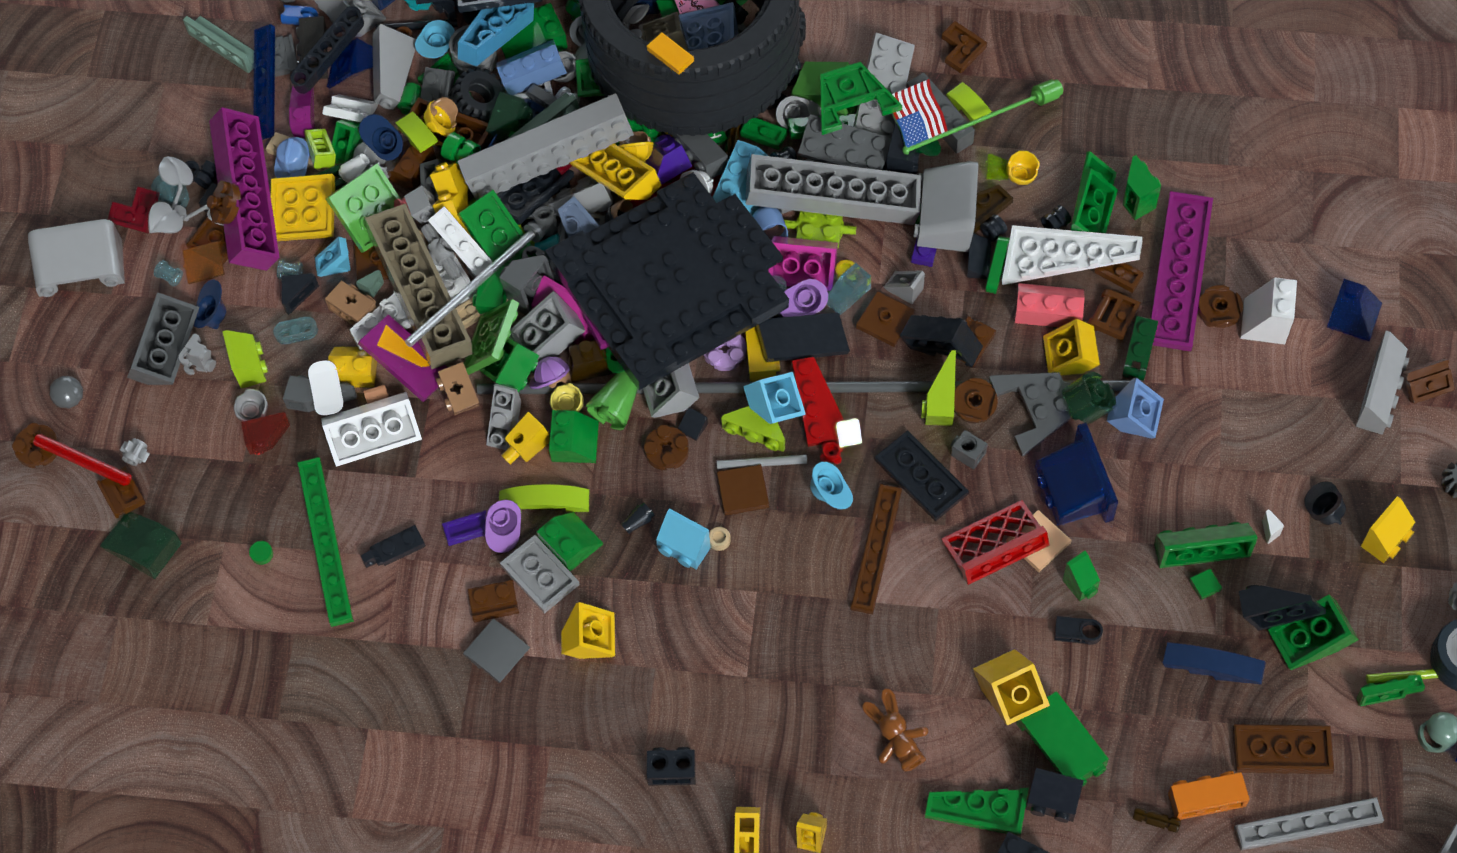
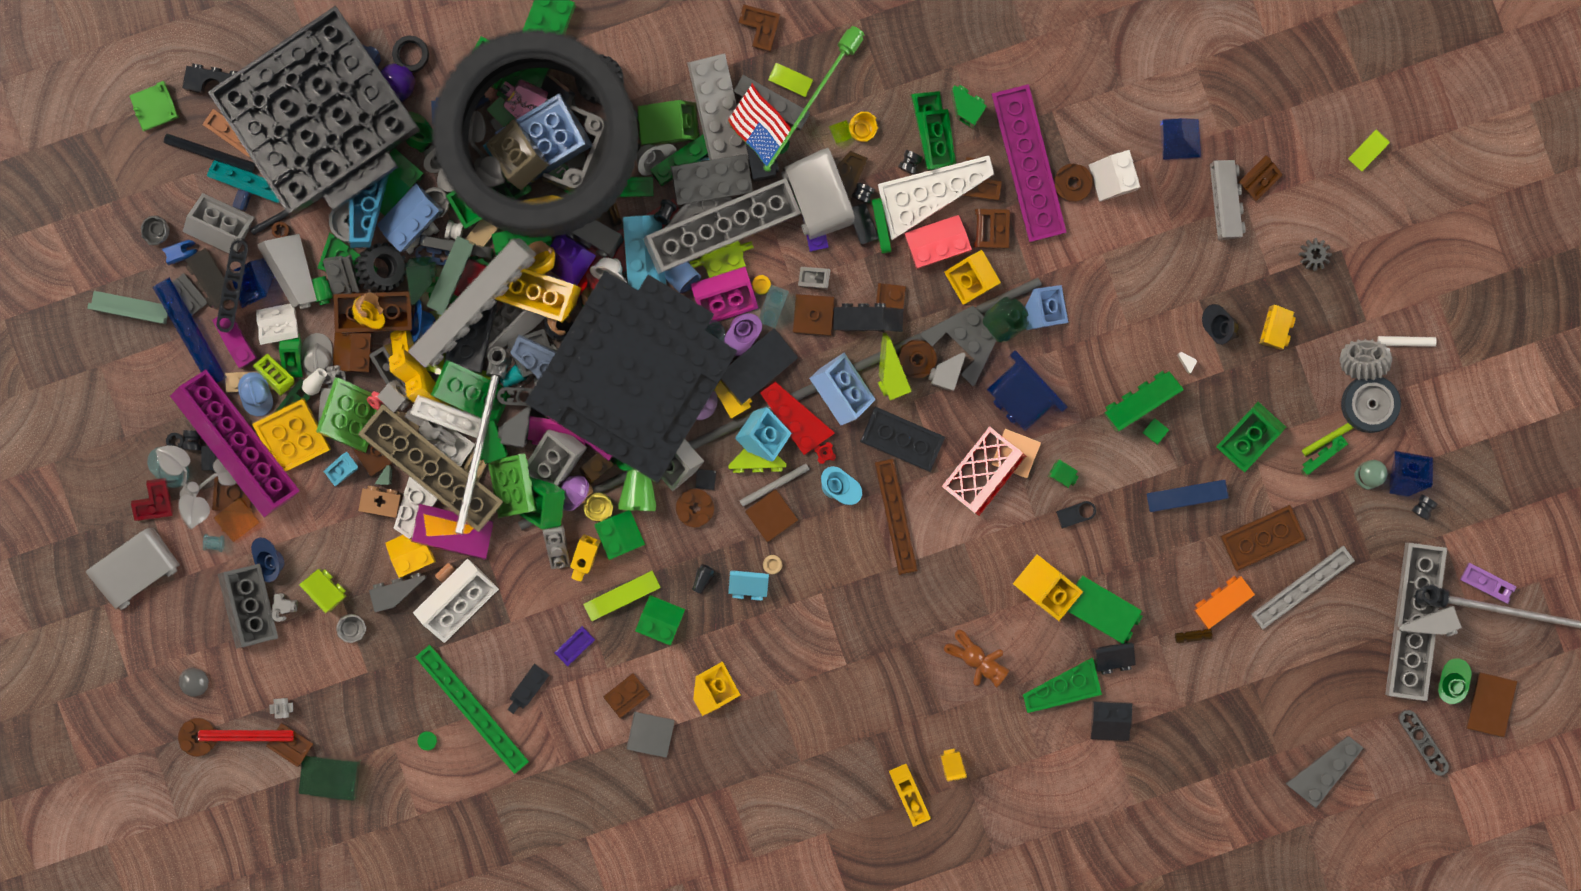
camera: 30 degrees left, 25 degrees up
(223, 202) = (234, 480): reddish brown plate -> none
(264, 432) = (373, 645): clear red slope -> none
(285, 268) = (311, 494): clear light blue bush -> none
(296, 290) = (327, 510): black slope -> none
(296, 330) = (347, 544): clear light blue plate -> none
(325, 388) = (405, 589): white sticker -> none
(381, 137) = (326, 347): dark blue piece -> none
(416, 132) = (352, 330): lime slope -> none
(434, 39) = (314, 228): medium azure piece -> none
(456, 147) = (393, 334): green wheel -> none
(457, 376) = (501, 529): medium nougat brick -> none
(502, 526) = (603, 634): medium lavender piece -> none
(539, 574) = (651, 658): light grey plate -> none
(670, 53) = (556, 211): light orange tile -> none
(671, 773) = (828, 767): black brick -> none
(848, 88) = (692, 130): green wing -> none
(848, 432) = (832, 433): slope -> none
(880, 394) = (842, 389): none -> light blue slope
(972, 457) = (938, 399): dark grey brick -> none
(1002, 423) = (947, 373): none -> light grey slope
(1140, 347) = (1026, 251): dark green plate -> none
(1272, 607) = (1210, 436): black slope -> none

